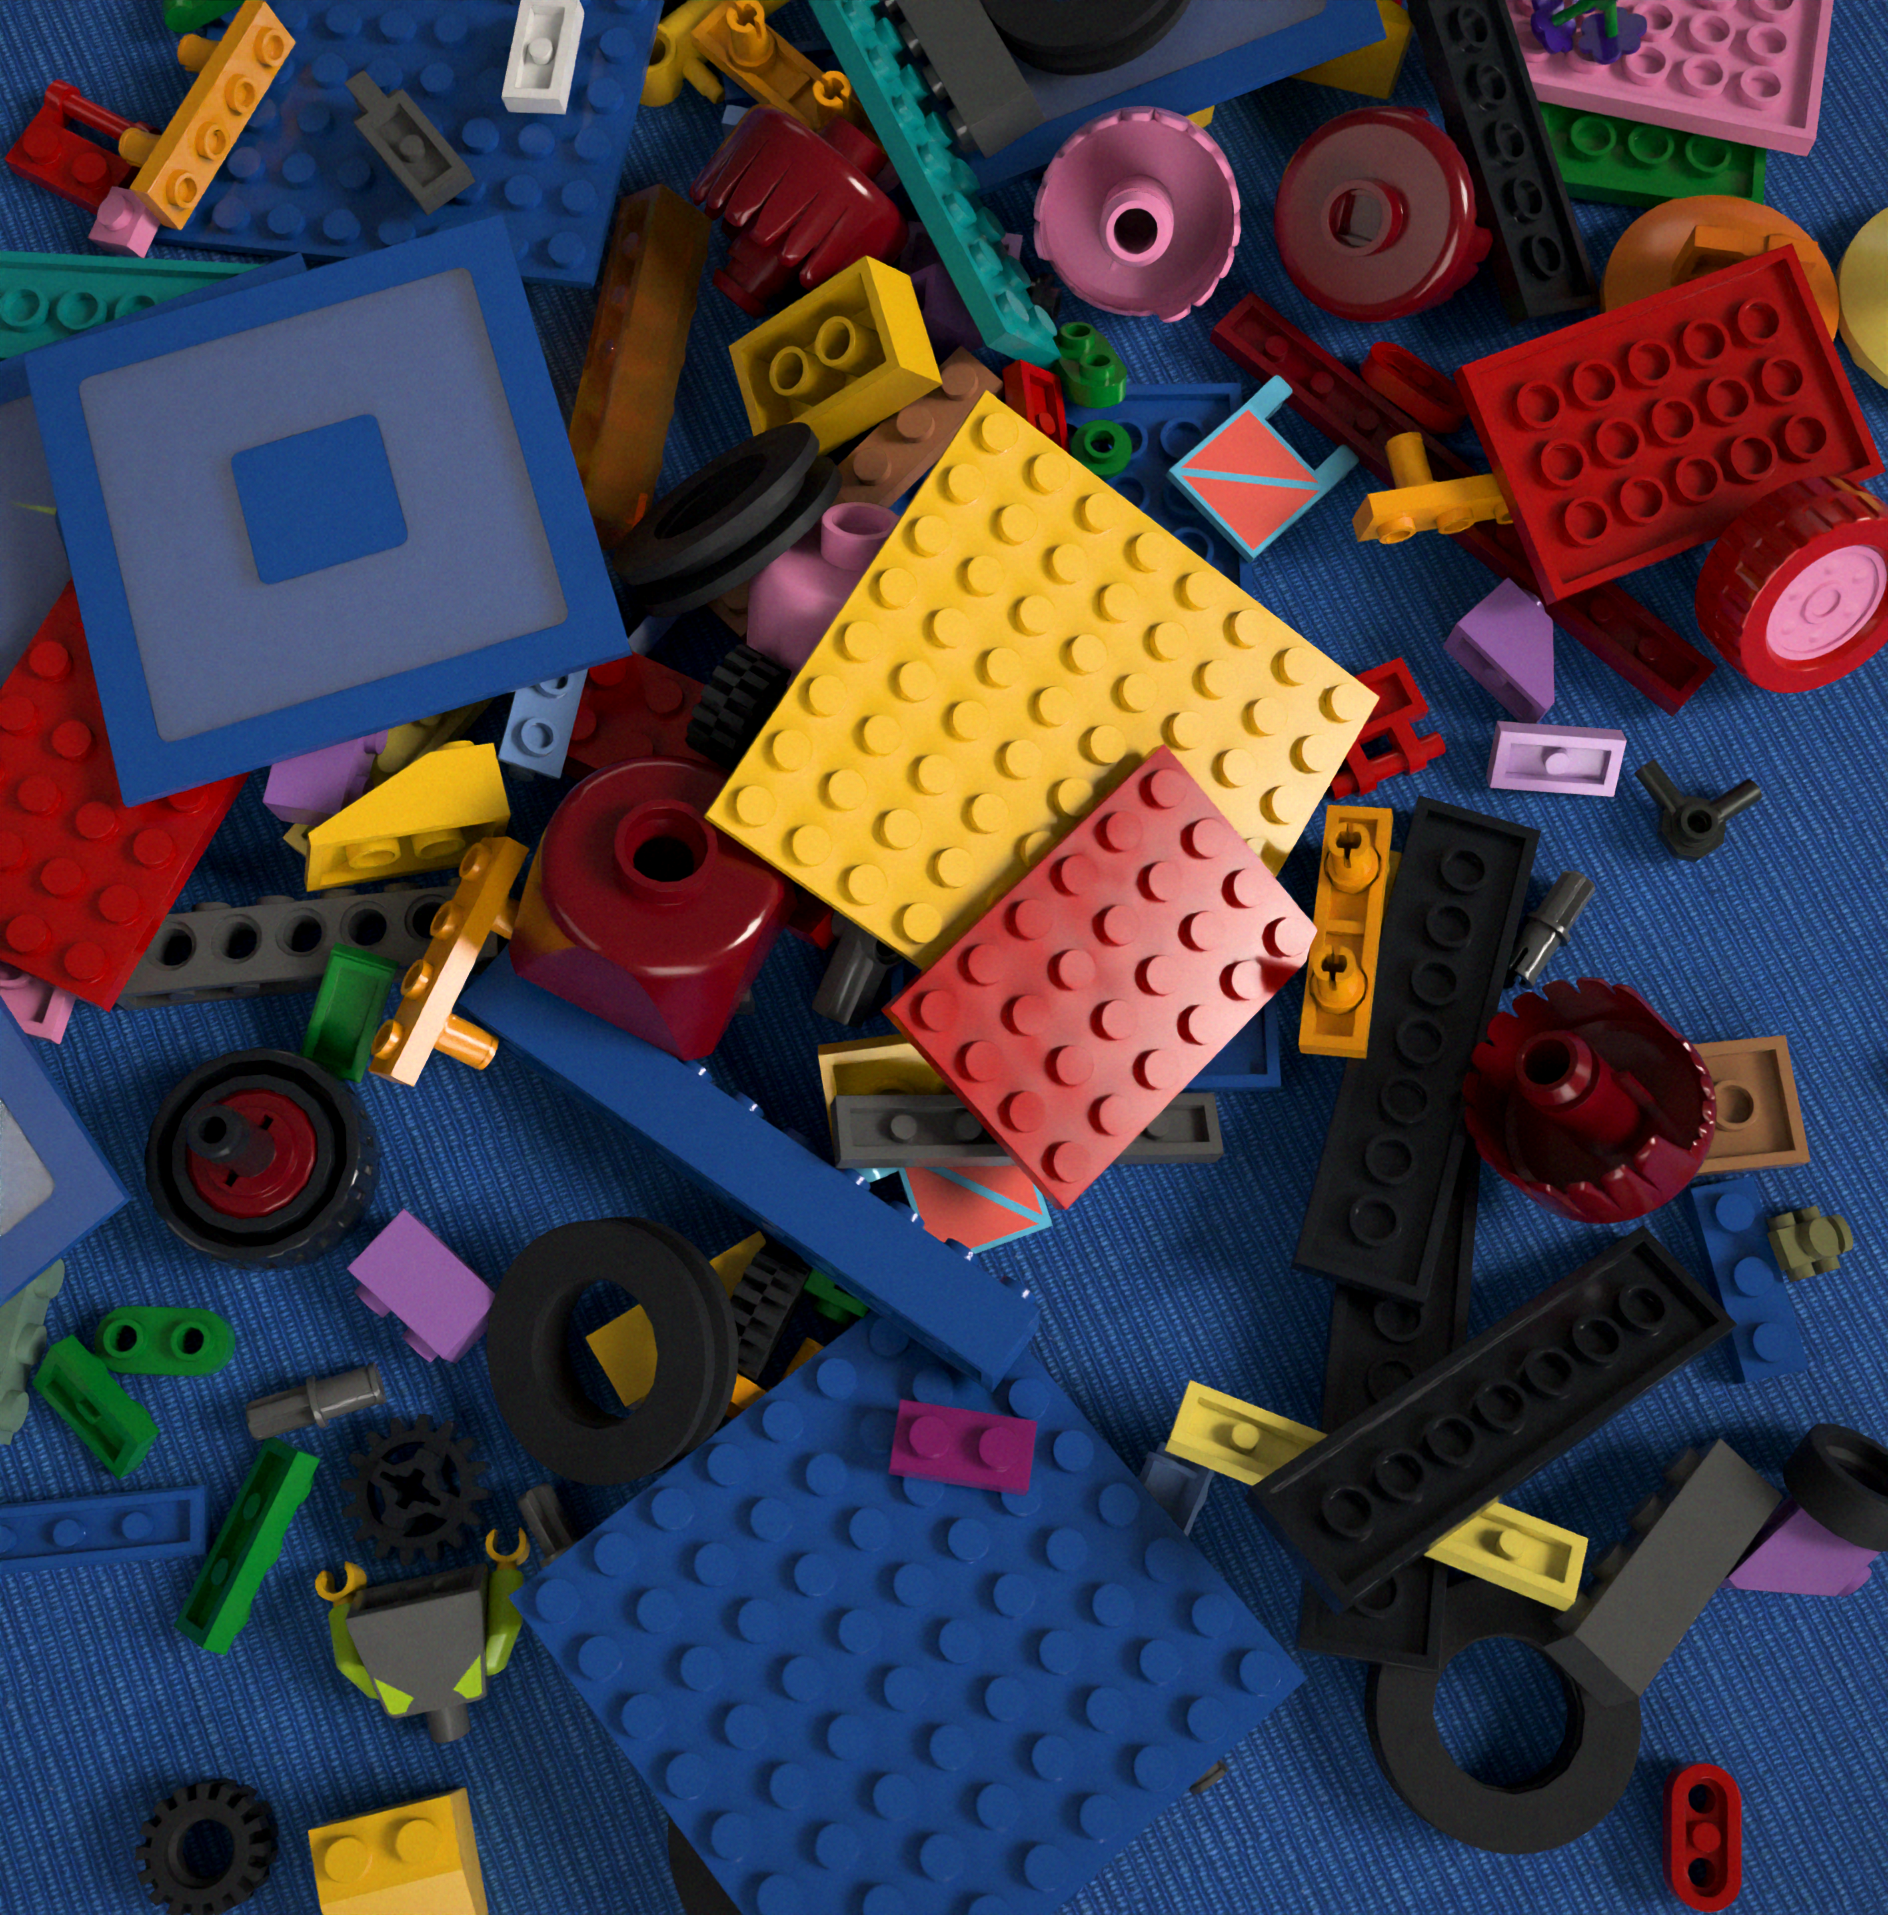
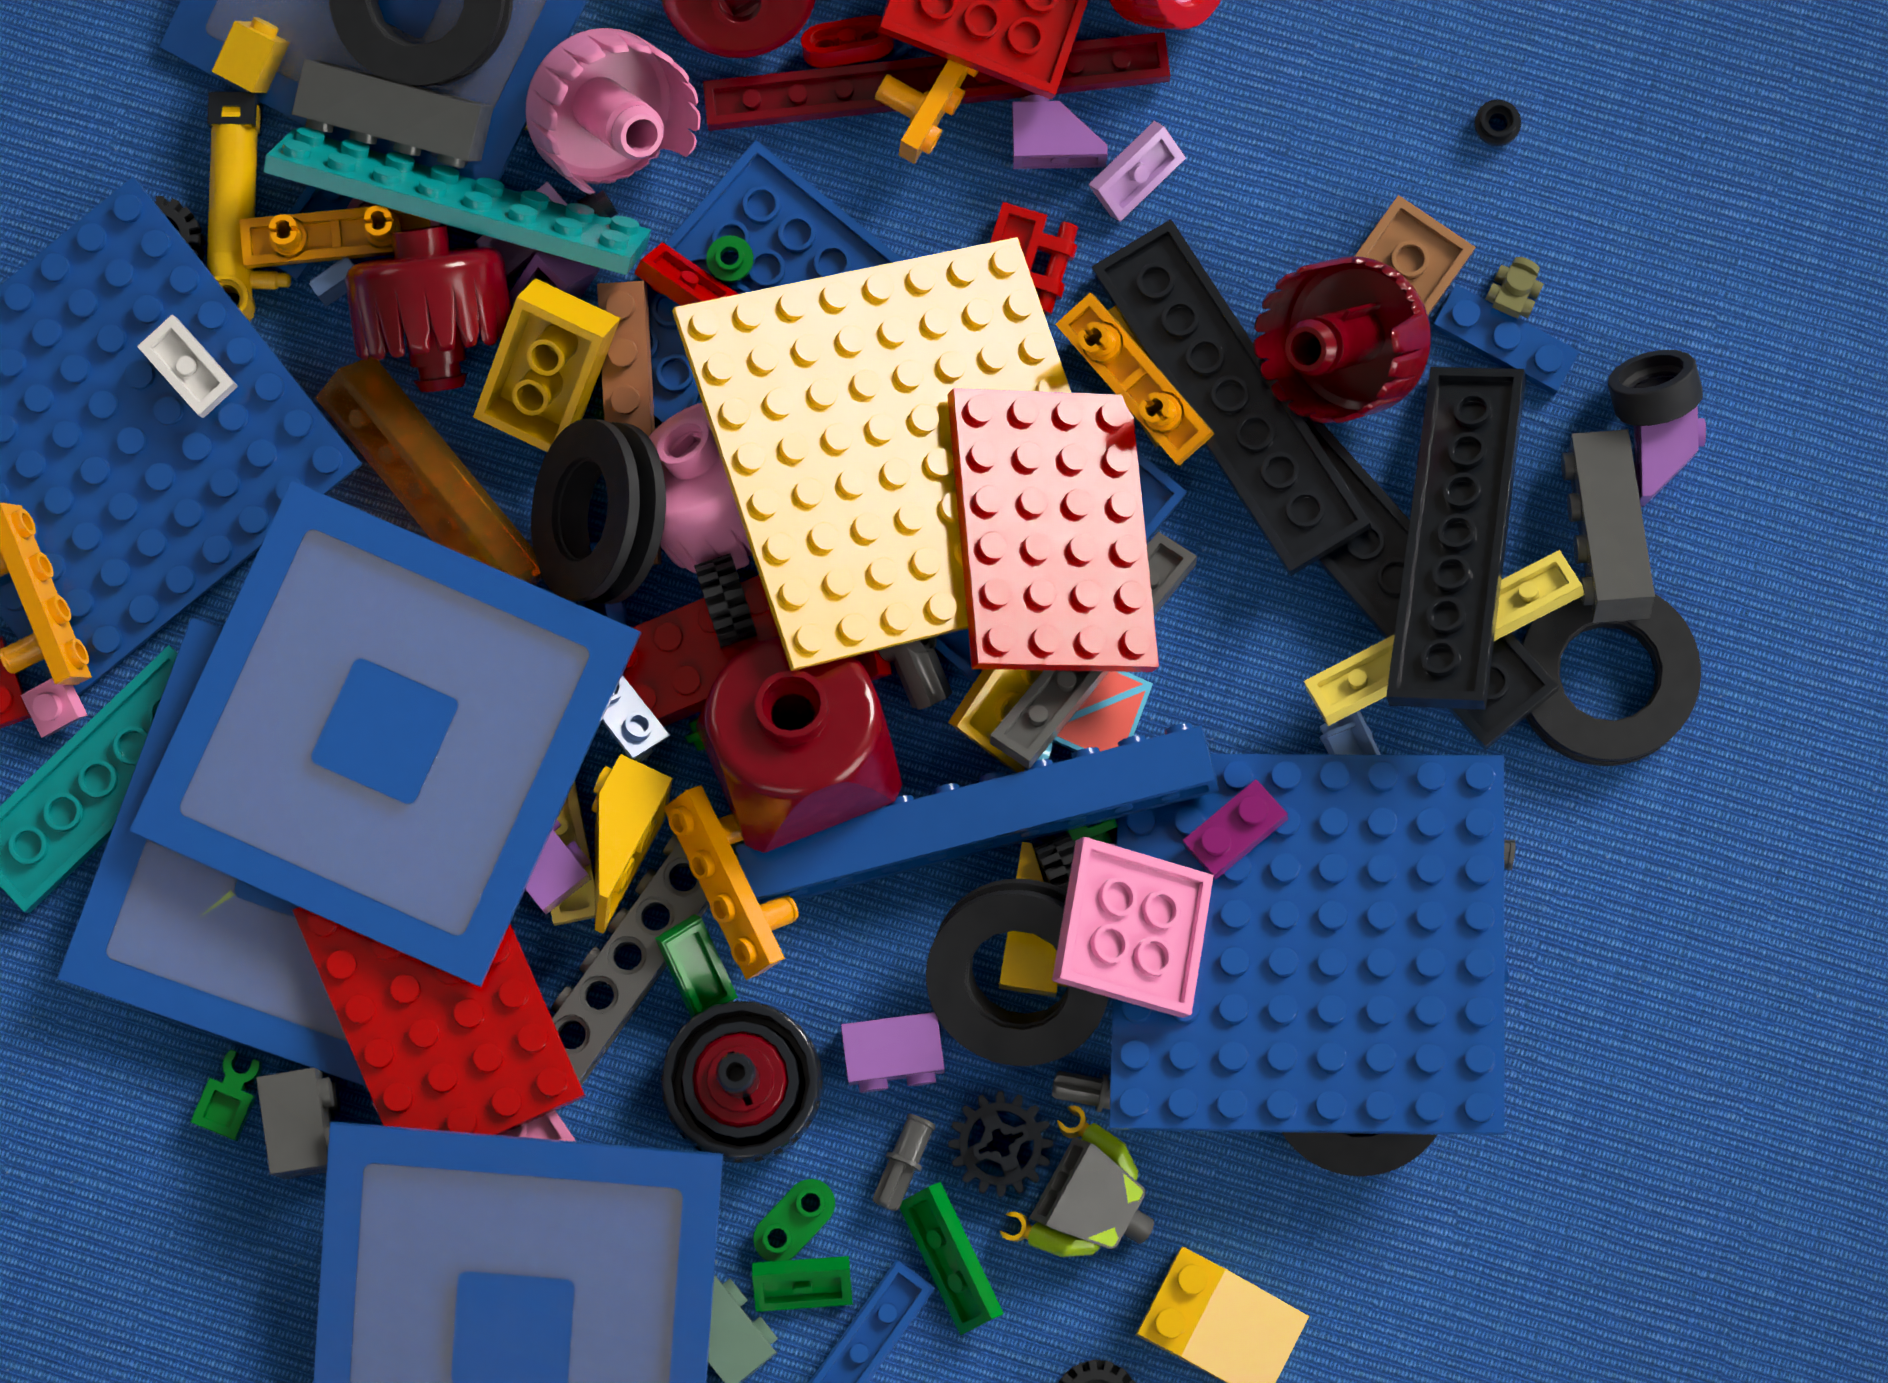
camera: 45 degrees left, 5 degrees up
(408, 144) = (171, 495): dark grey hinge -> none
(746, 1429) = (1133, 927): none -> bright pink plate
(1089, 367) = (662, 216): green plate -> none
(1251, 478) = (821, 188): flag -> none
(1548, 927) = (1227, 264): dark grey axle -> none
(1690, 824) = (1240, 131): pearl dark grey piece -> none
(1704, 1833) = (1757, 624): red plate -> none

